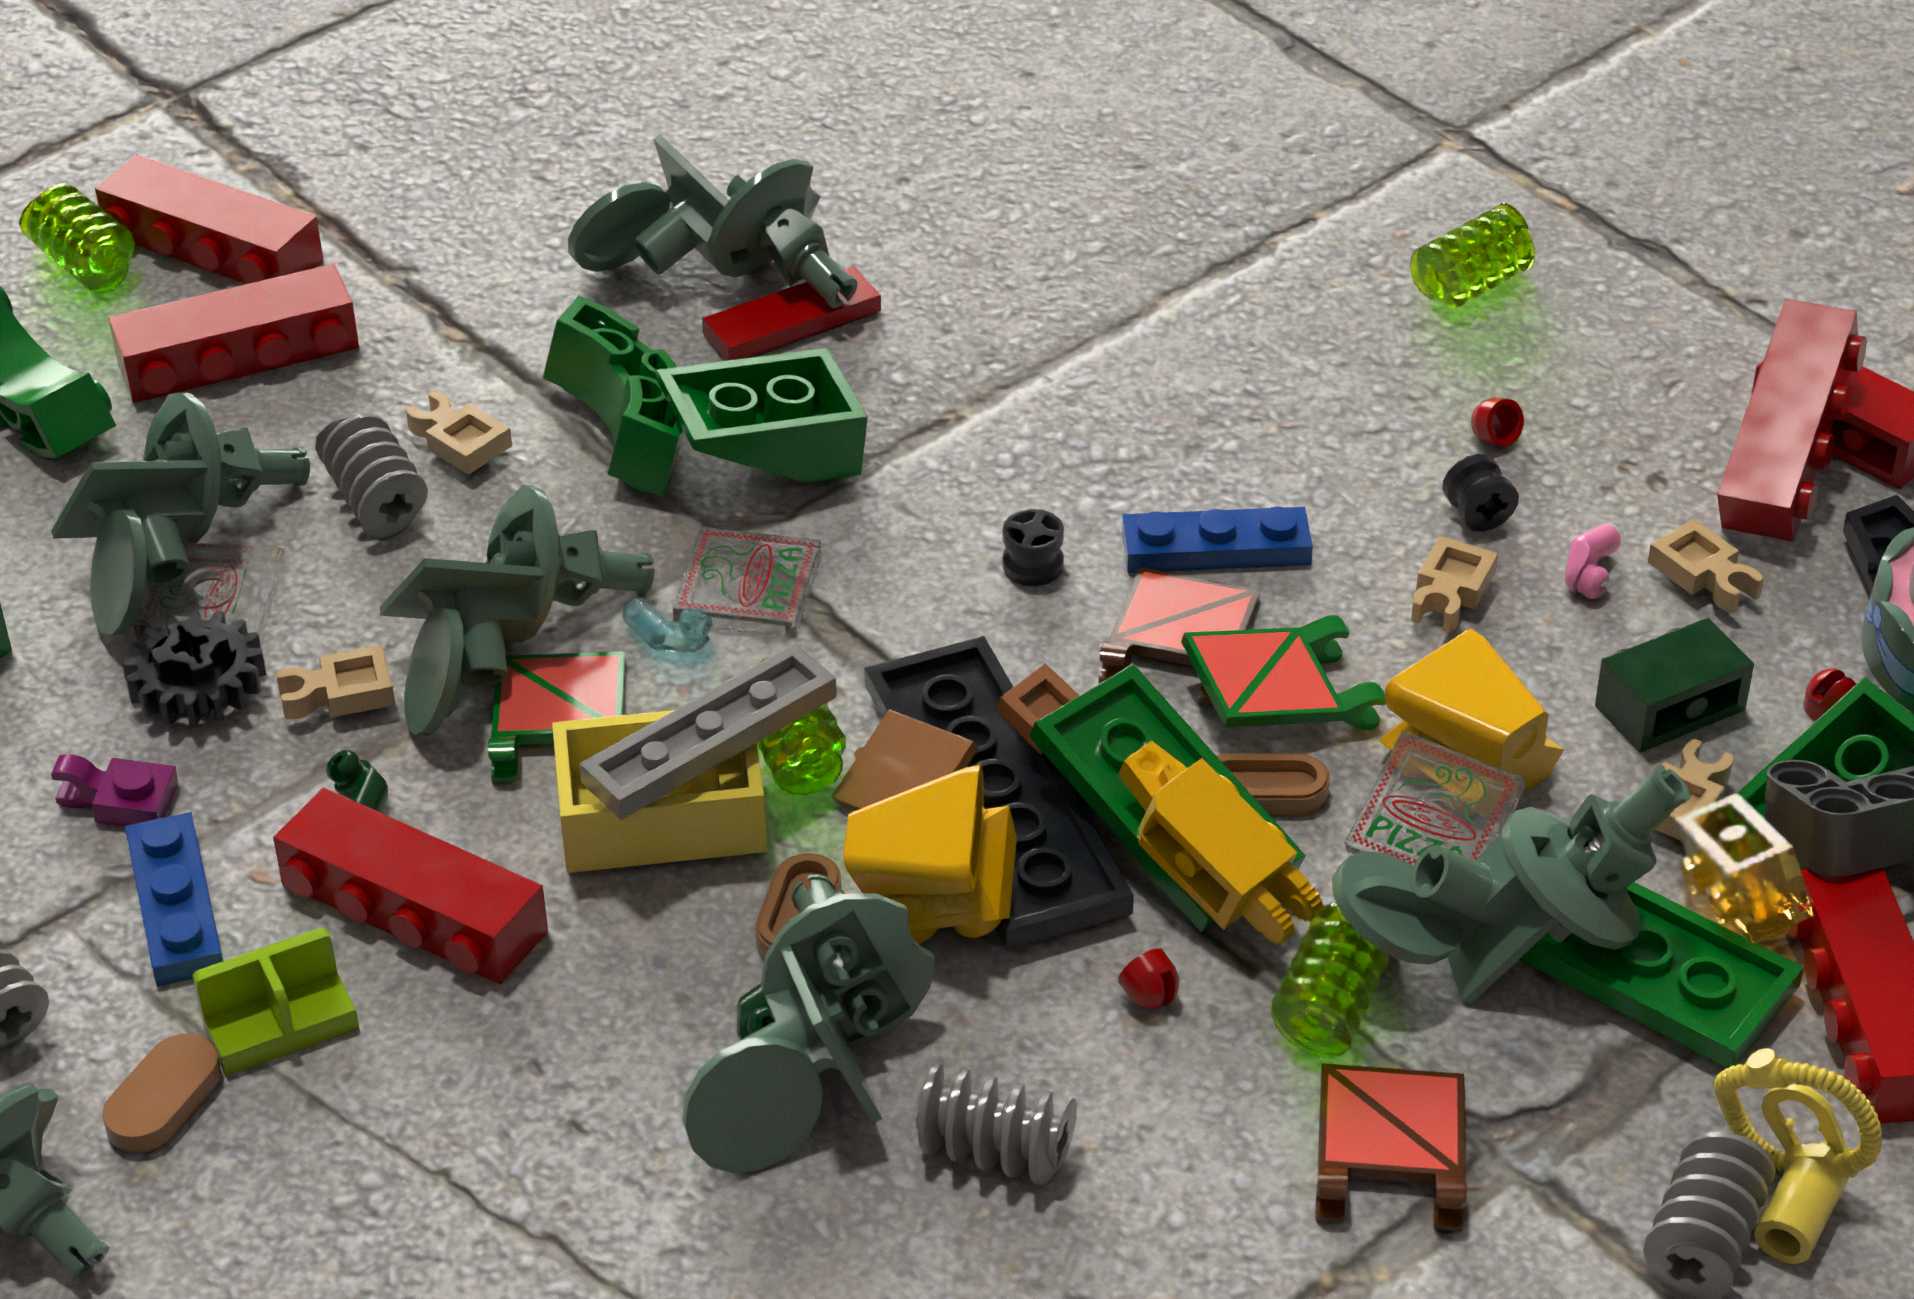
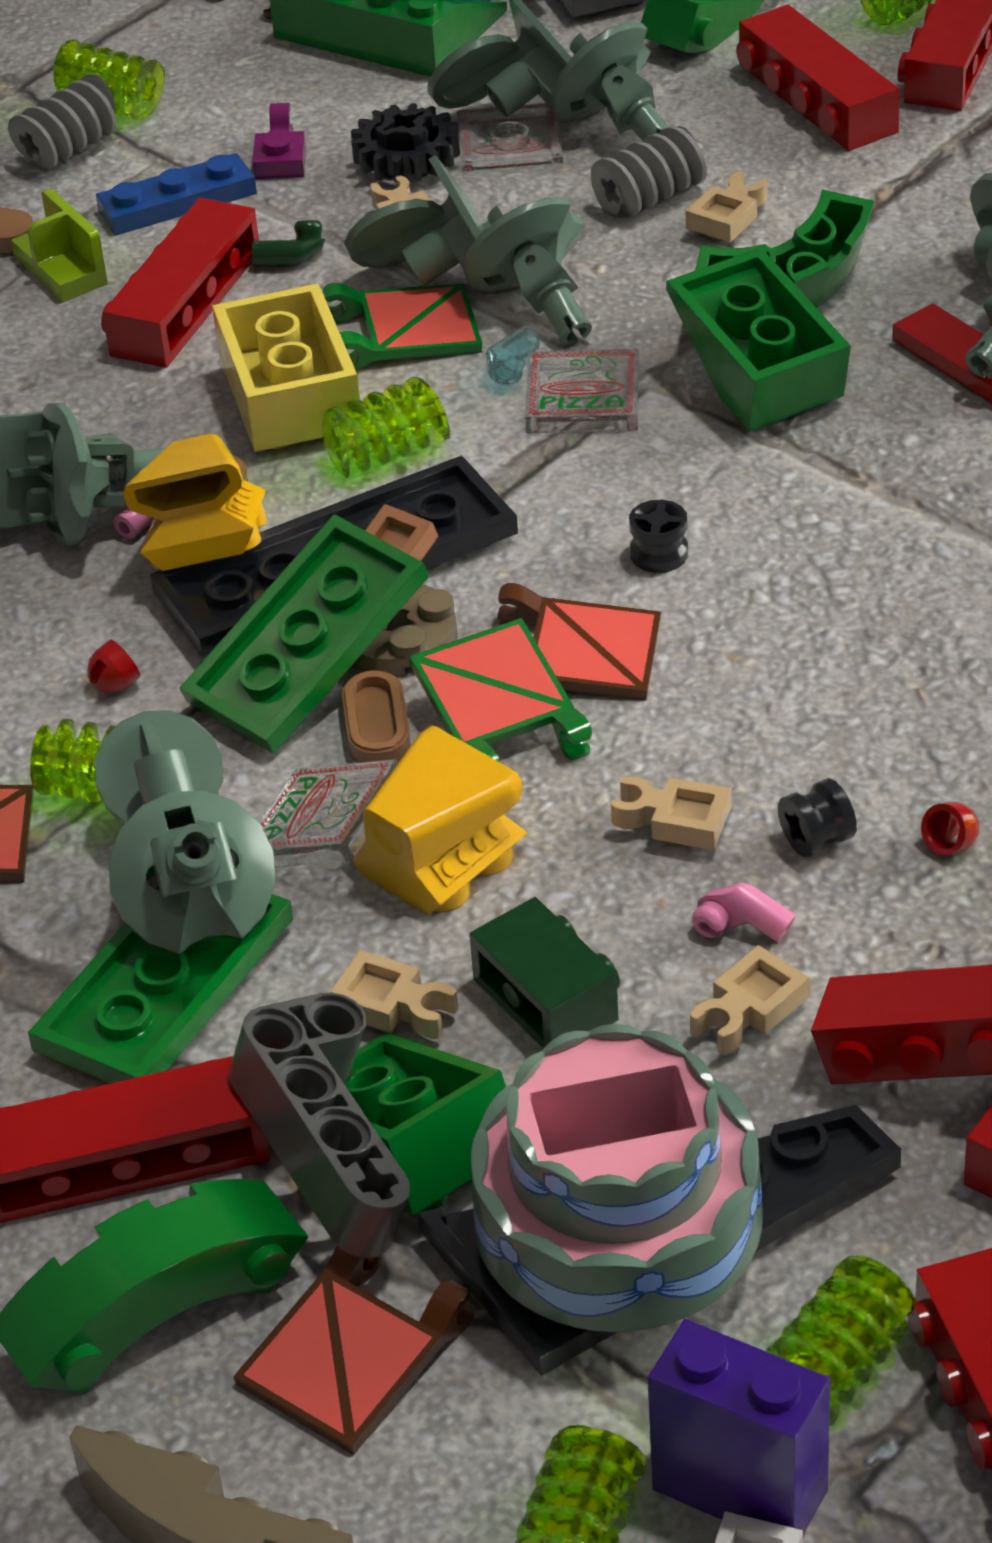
camera: 85 degrees right, 0 degrees up
(707, 731) = (297, 345): light grey plate -> none
(899, 758) = (333, 494): medium nougat piece -> none
(1217, 539) = (715, 657): blue plate -> none
(1217, 844) = (230, 647): yellow hinge -> none
(1743, 869) = (215, 994): clear yellow brick -> none

